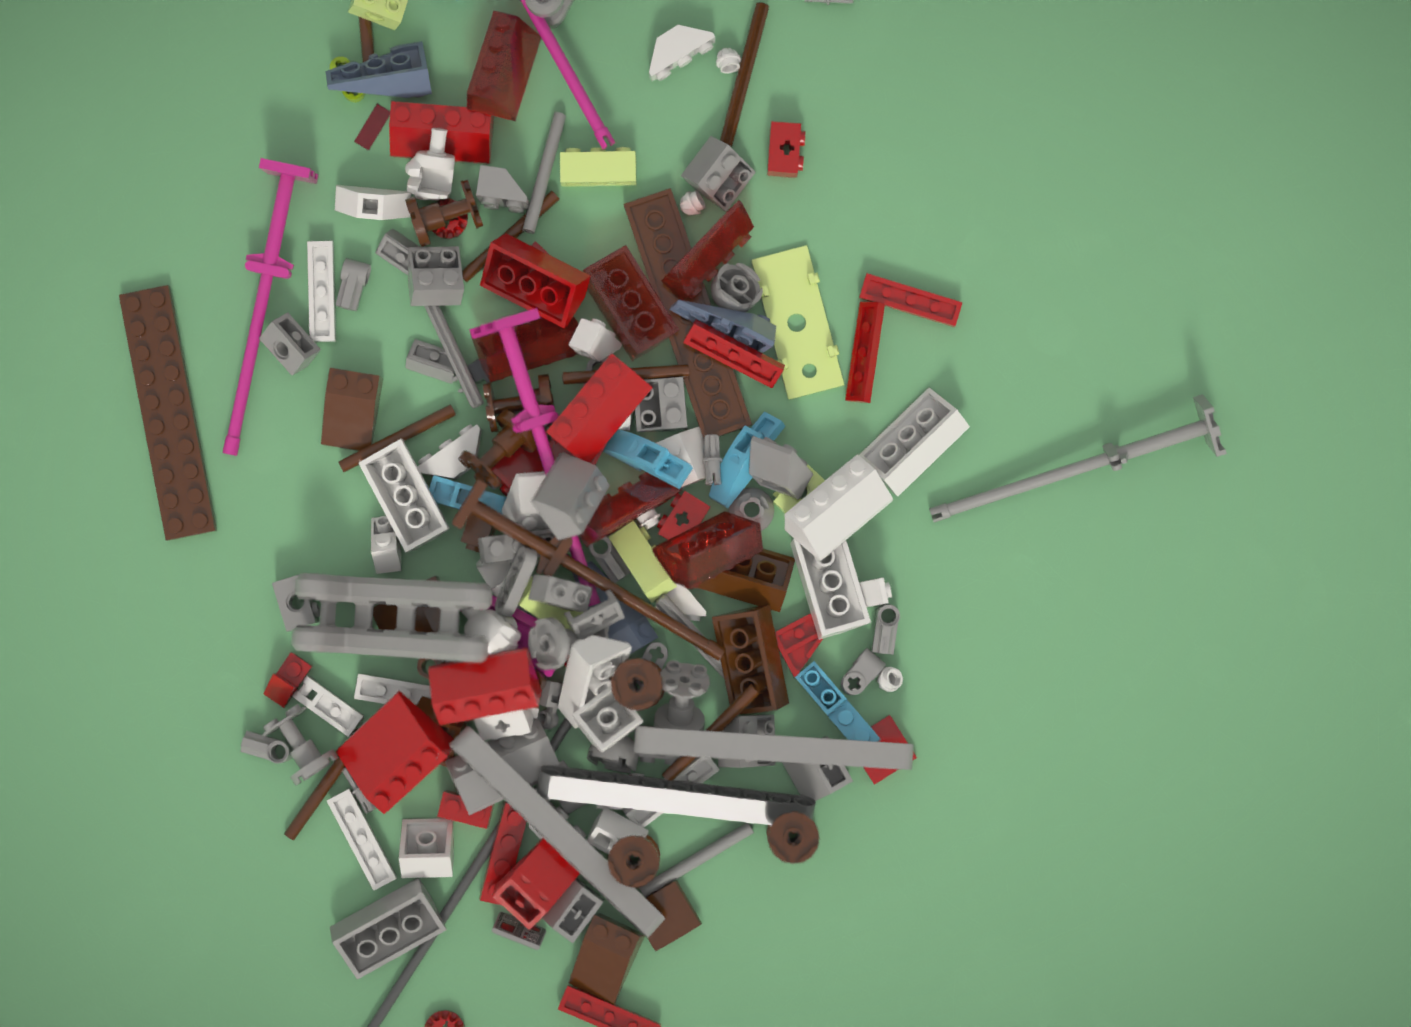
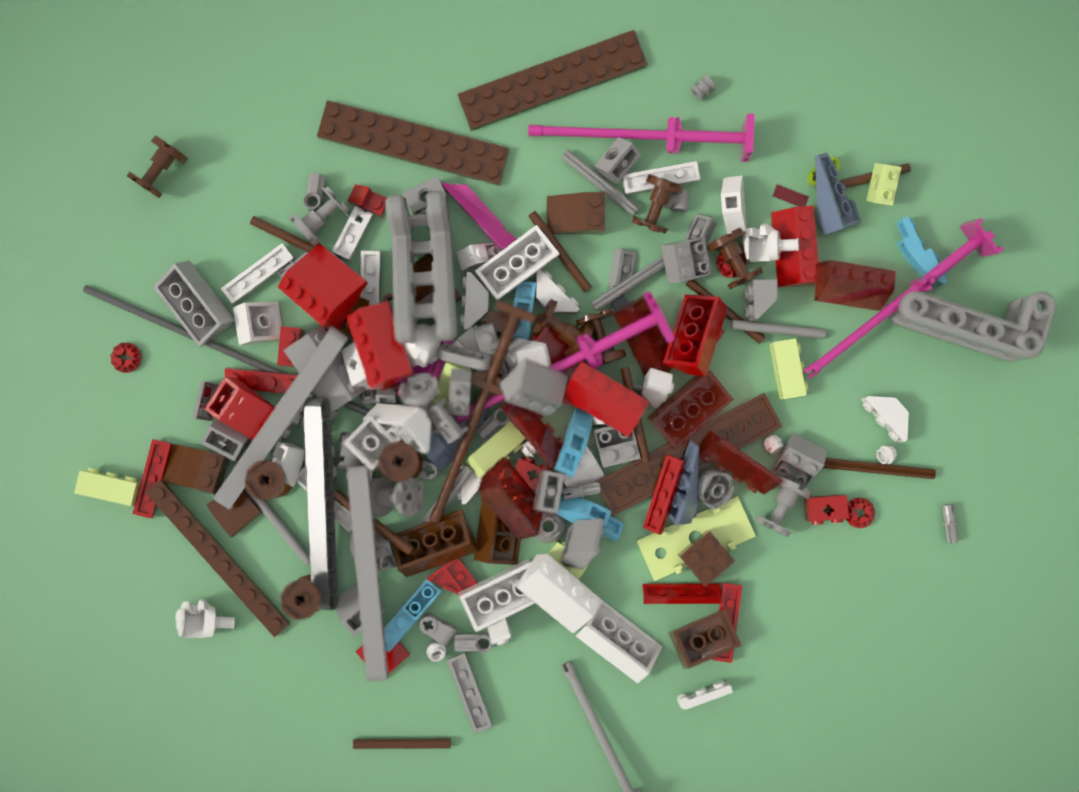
camera: 80 degrees right, 0 degrees up
(191, 942) = (161, 160): none -> reddish brown piece
(211, 217) = (703, 87): none -> light grey bush
(221, 609) = (413, 143): none -> reddish brown plate
(314, 371) = (600, 182): none -> light grey axle
(331, 535) = (480, 214): none -> dark pink wedge
(347, 297) = (660, 196): none -> reddish brown piece
(445, 558) = (475, 302): none -> white slope
(706, 501) = (548, 491): none -> light grey brick
(725, 945) = (217, 558): none -> reddish brown plate
(764, 199) = (786, 499): none -> light grey piece
(795, 95) = (868, 509): none -> red gear
(802, 978) = (200, 620): none -> white piece
(823, 313) = (706, 558): none -> reddish brown brick
(926, 332) = (704, 639): none -> reddish brown slope
(949, 644) = (469, 692): none -> light grey plate
(998, 344) = (704, 695): none -> white plate
(1001, 742) = (402, 743): none -> reddish brown piece

